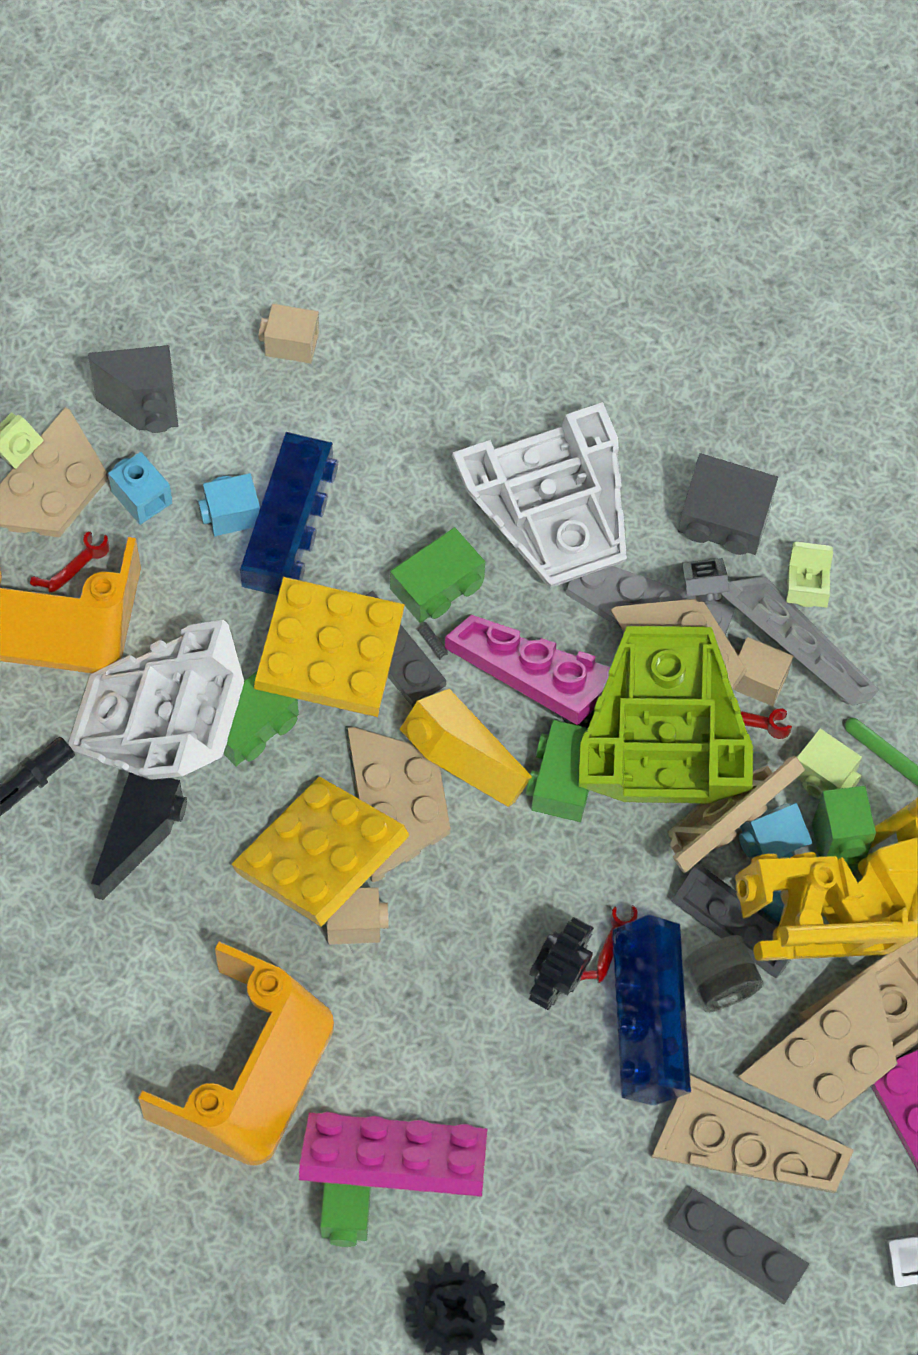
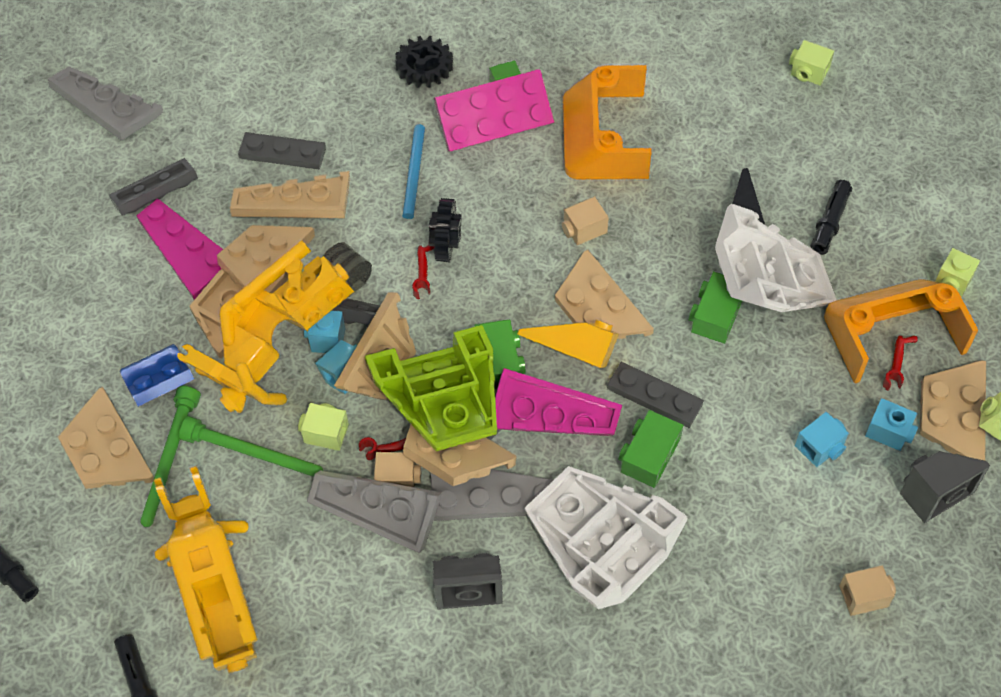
camera: 160 degrees right, 5 degrees down
(288, 513) = (779, 450): clear blue brick -> none
(320, 850) = (625, 241): yellow plate -> none
(329, 647) = (693, 358): yellow plate -> none
(434, 638) = (632, 410): dark grey leg -> none
(553, 1122) = (413, 172): none -> dark azure bar
(651, 1011) = (380, 232): clear blue brick -> none
(706, 579) = (458, 500): dark grey plate -> none
(809, 574) = (386, 558): yellowish green bracket -> none
(844, 825) = (297, 376): bright green brick -> none

